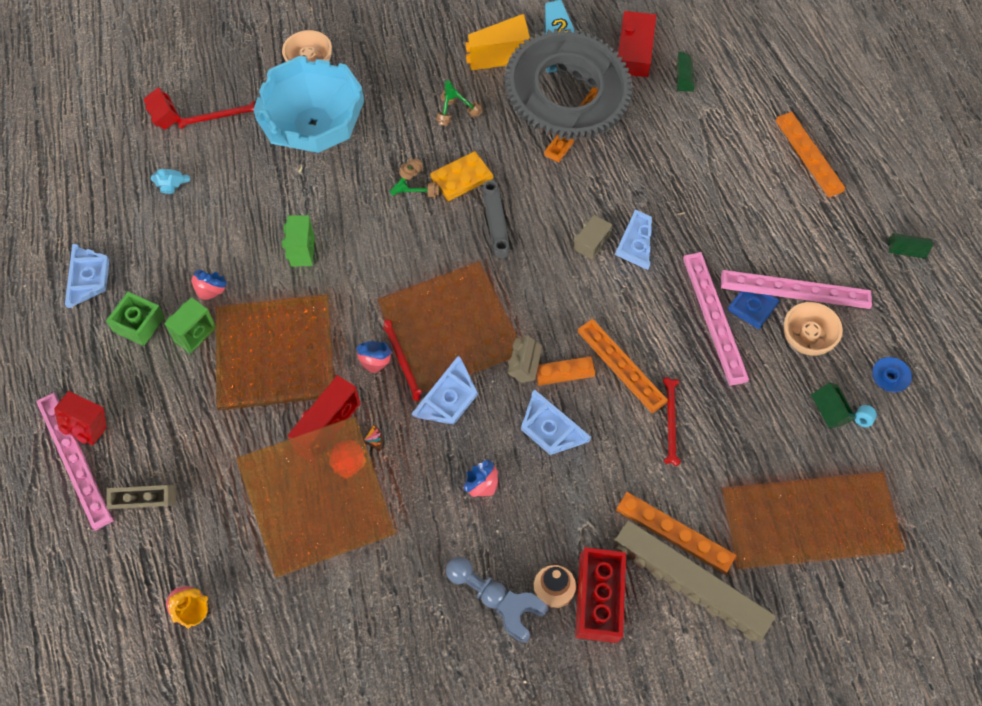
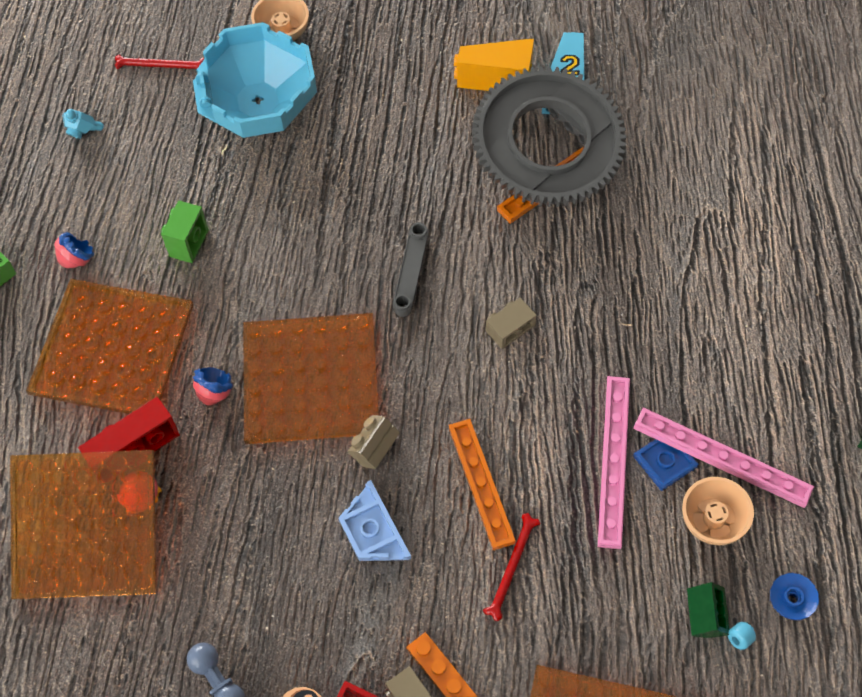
camera: 20 degrees right, 0 degrees up
(161, 108) = (103, 40): red brick -> none
(190, 325) = (33, 292): bright green brick -> none
(374, 438) = (177, 478): tile -> none
(409, 170) = (329, 187): medium nougat plant -> none
(416, 392) = (242, 418): red piece -> none
(448, 396) = (274, 457): light blue wing -> none
(450, 96) = (418, 112): plant -> none
(461, 176) = (394, 208): light orange plate -> none
(482, 479) = (270, 565): hair -> none
(565, 371) = (415, 469): orange plate -> none
(636, 240) = (559, 341): light blue wing -> none
(637, 42) = (656, 107): red brick -> none
(684, 73) = (700, 158): dark green brick -> none
(810, 154) = (811, 299): orange plate -> none

